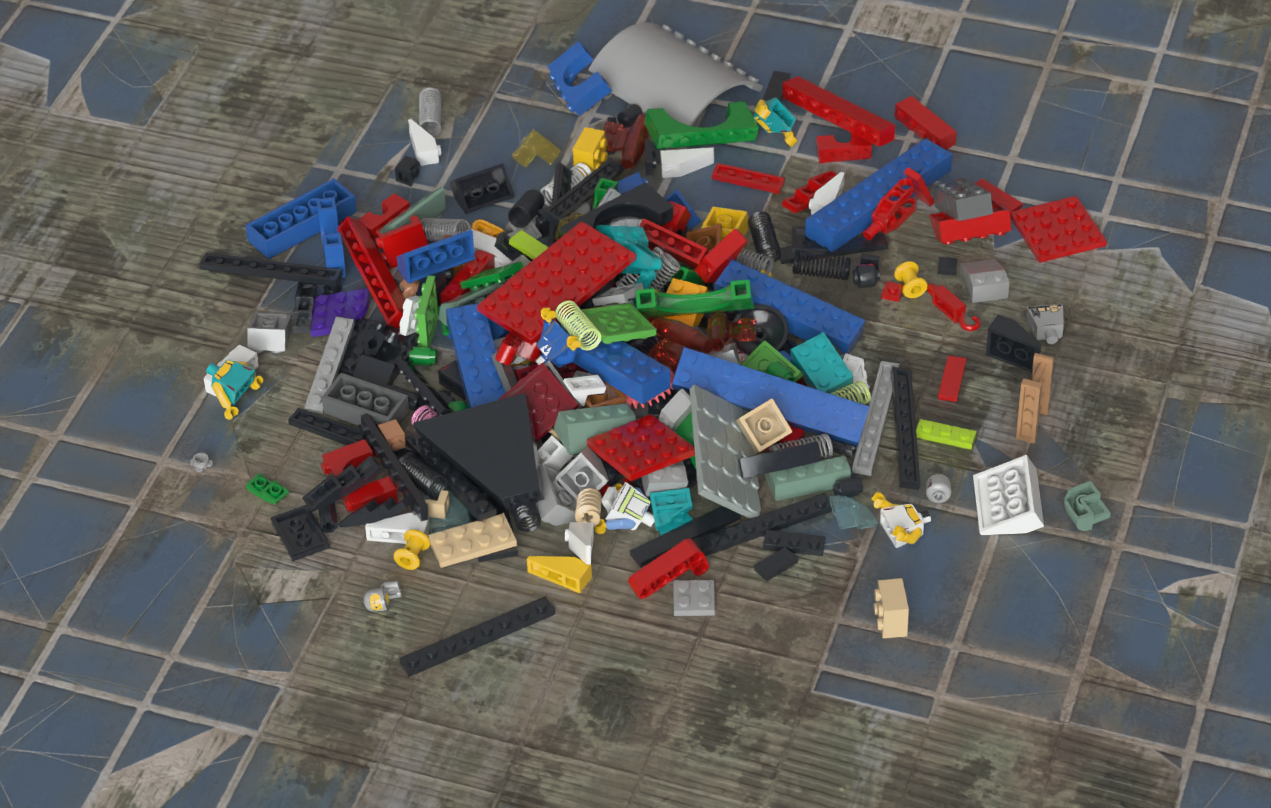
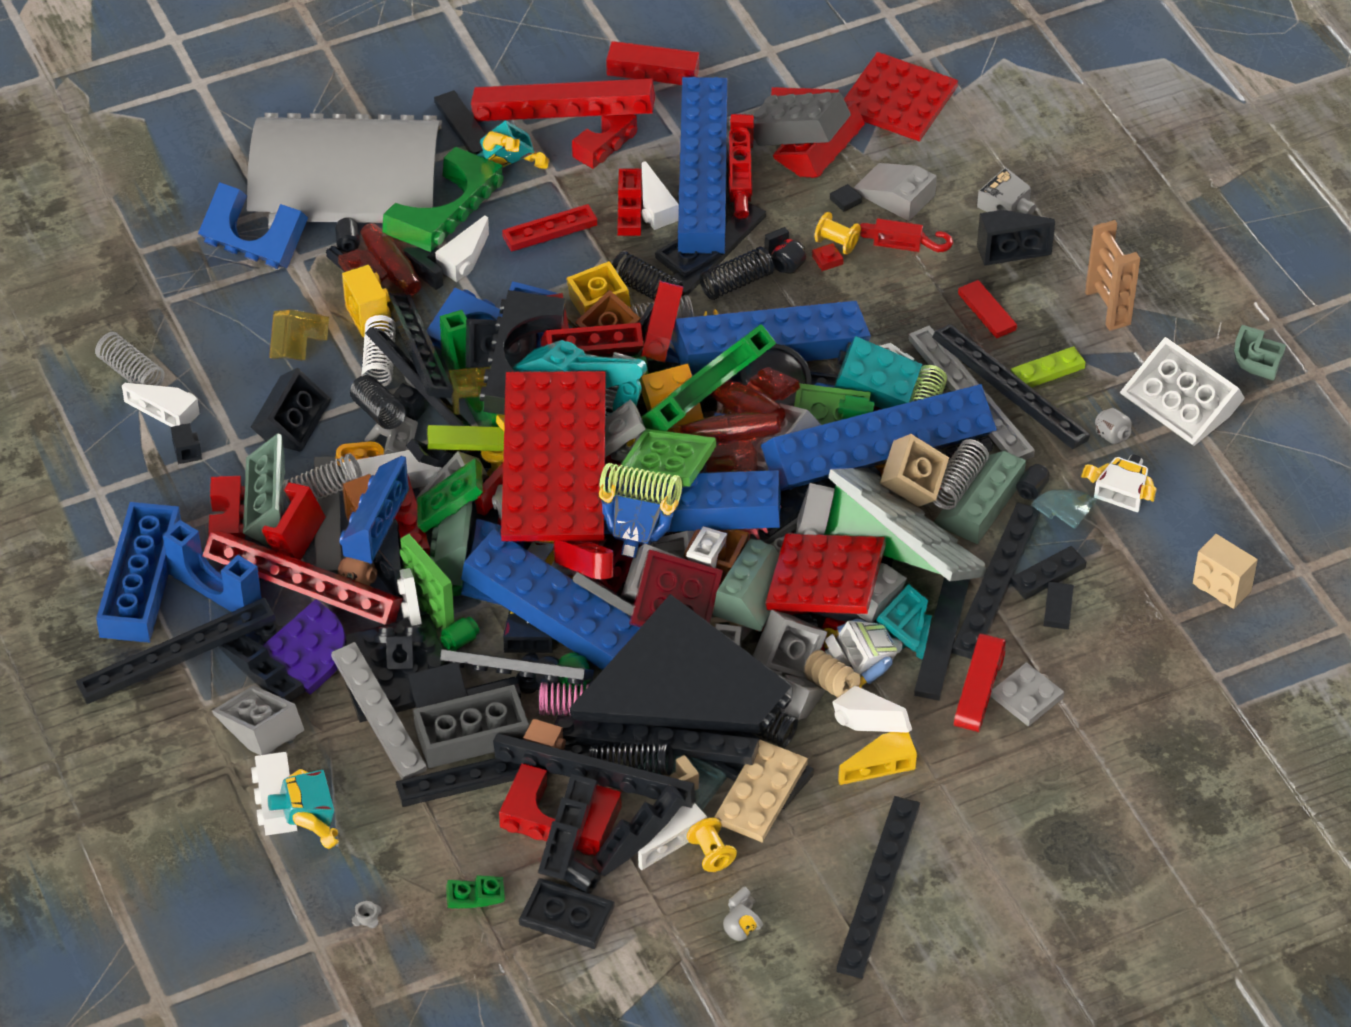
camera: 45 degrees left, 5 degrees up
(779, 460) = (963, 496): black slope -> none

